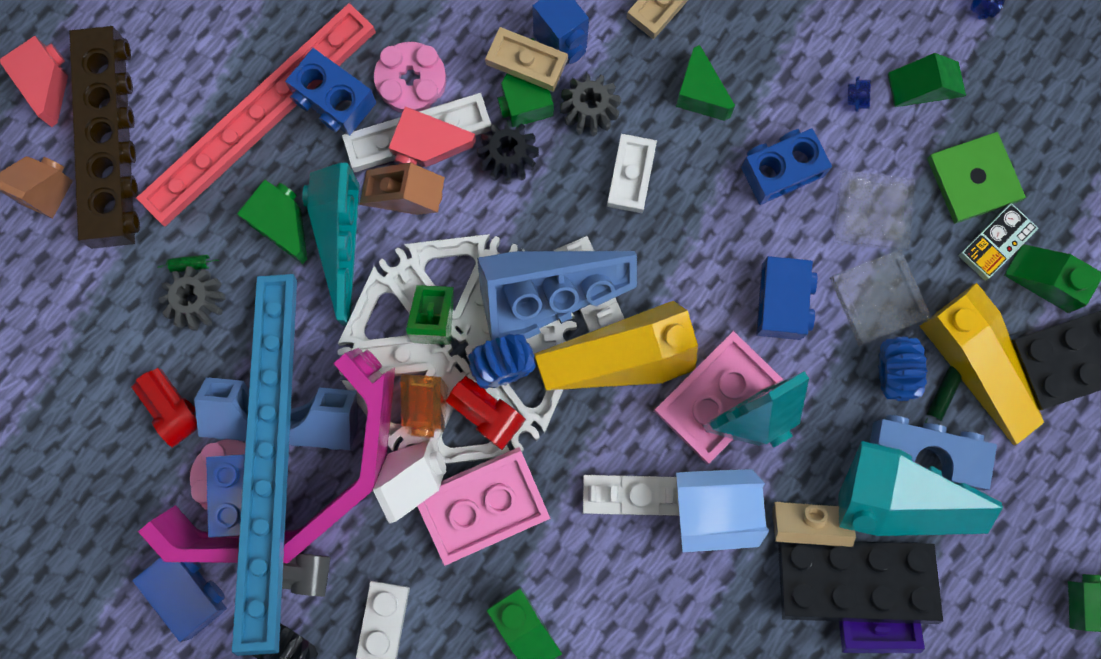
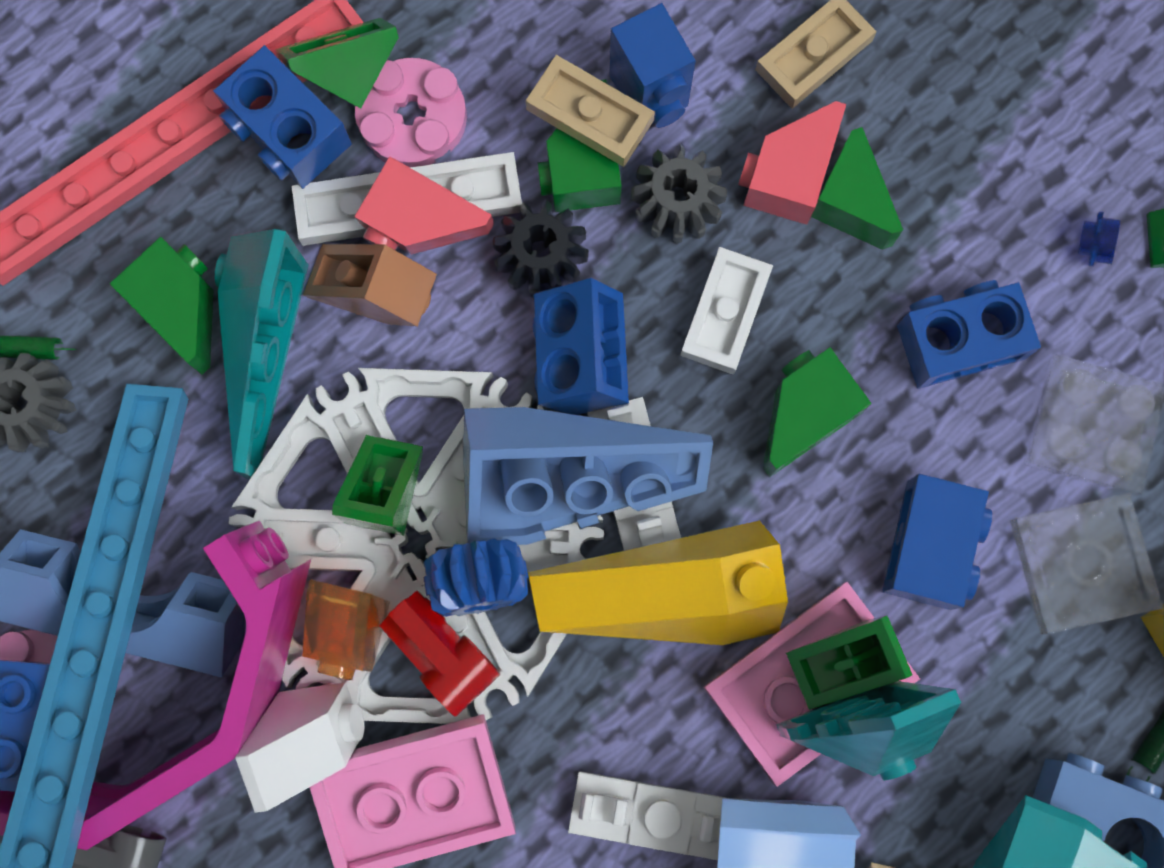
camera: 10 degrees right, 0 degrees up
(363, 49) = (343, 60): none -> green slope
(542, 202) = (580, 348): none -> blue brick
(659, 75) = (793, 165): none -> coral slope
(693, 226) = (810, 407): none -> green slope
(741, 378) = (849, 662): none -> green slope
(902, 368) = (1106, 684): blue gear -> none

